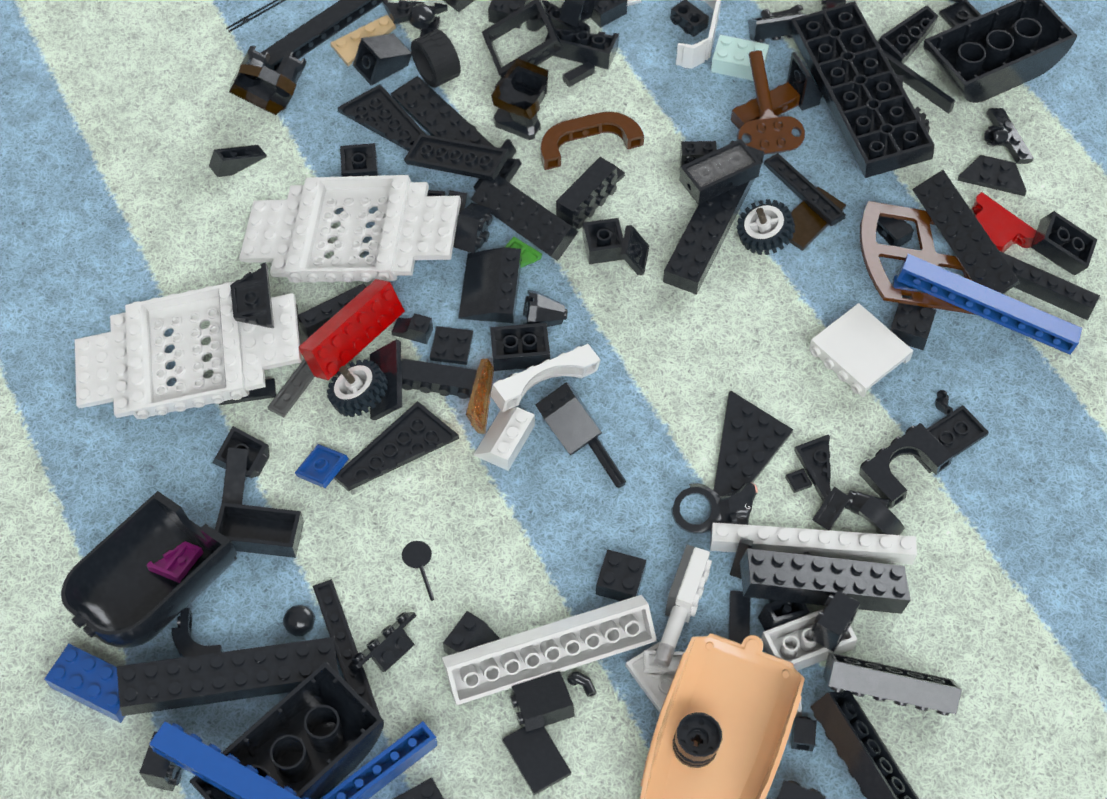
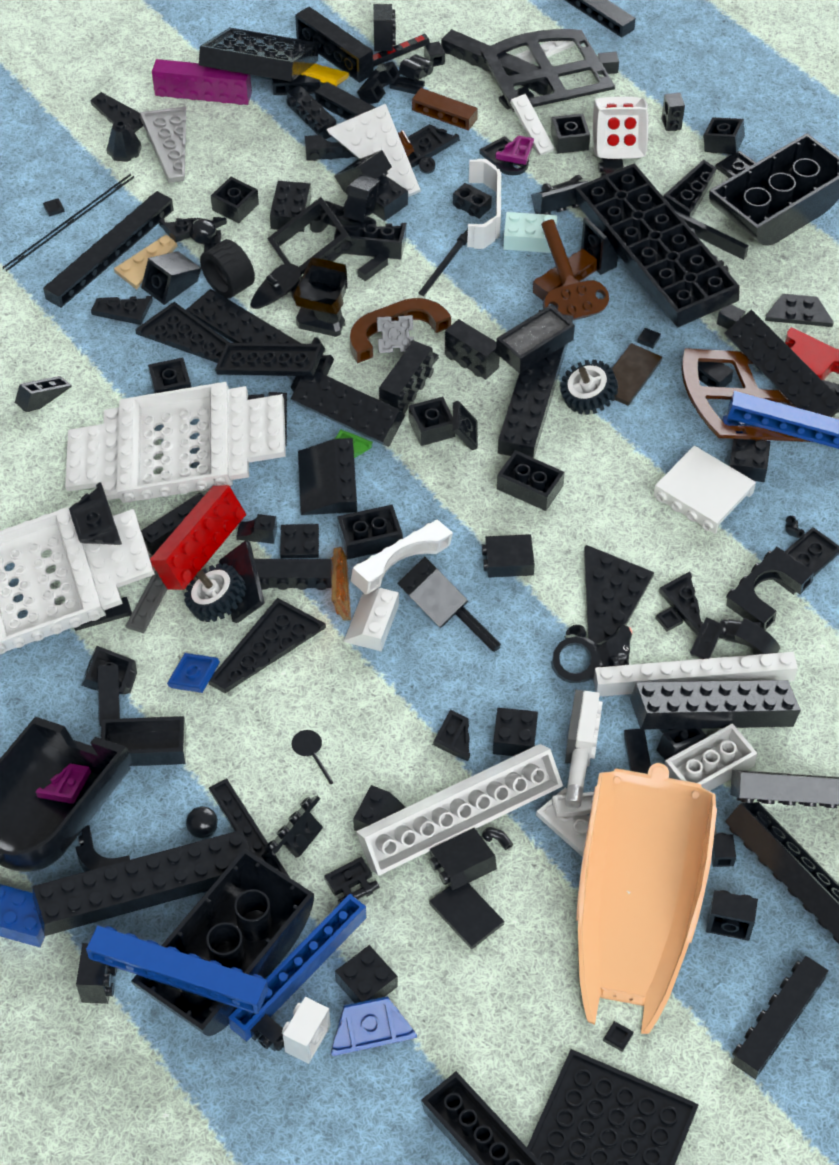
camera: 10 degrees left, 5 degrees down
(271, 88) = (65, 318): black piece -> none
(331, 86) = (126, 310): none -> black wing
(428, 700) = (349, 876): none -> black plate
(472, 227) = (299, 424): black brick -> none
(481, 80) = (276, 285): none -> black shield
(543, 309) = (384, 492): black cone -> none
(561, 570) = (454, 735): none -> black wing
(584, 145) = (394, 333): none -> brick
(651, 391) = (508, 556): none -> black brick
(656, 172) = (471, 349): none -> black brick
(671, 57) = (461, 240): none -> black bar
(688, 316) = (530, 480): none -> black brick
(695, 149) = (501, 324): black brick -> none
(698, 728) = (627, 858): black wheel -> none
(703, 478) = (576, 629): none -> black tile
(743, 545) = (627, 709): black piece -> none
(804, 189) = (619, 347): black tile -> none
(834, 620) = (733, 736): black brick -> none
(836, 183) = (648, 338): none -> black tile
(922, 171) = (729, 316): none -> black brick
(1005, 134) = (801, 270): black plate -> none

